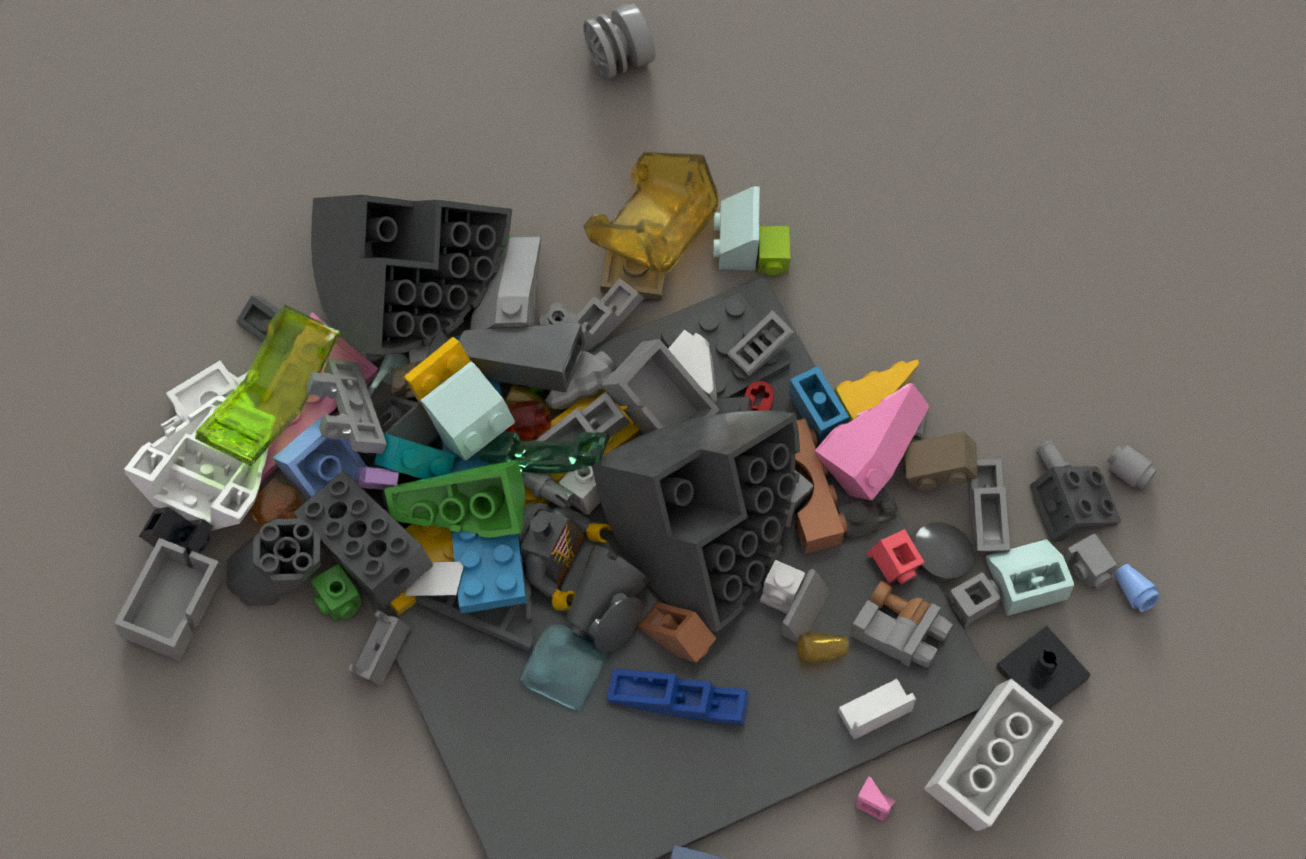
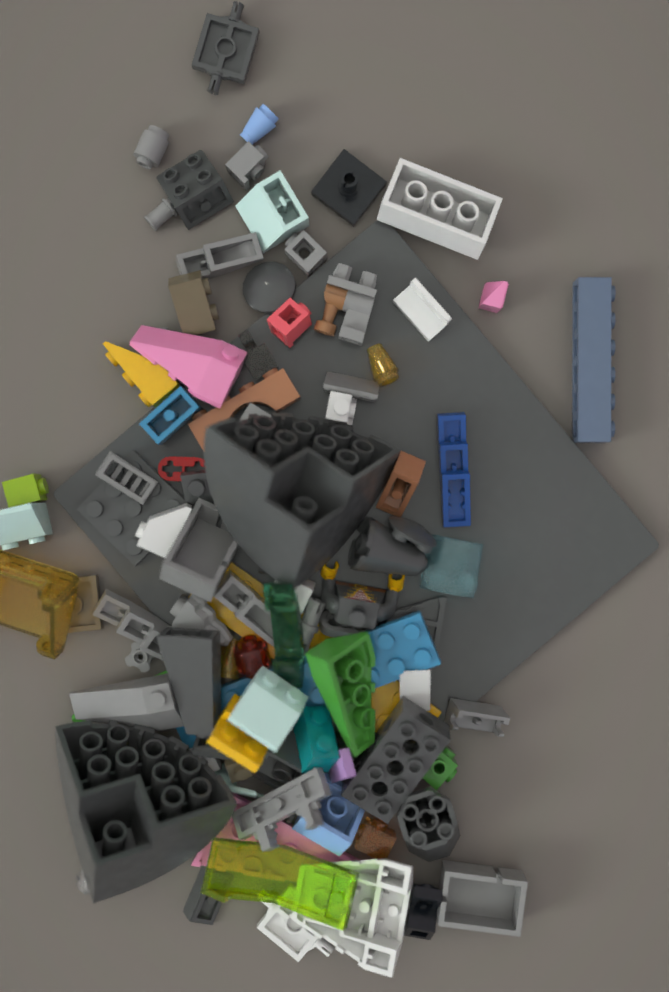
camera: 100 degrees left, 25 degrees up
(1233, 574) = (225, 48): none -> dark grey plate

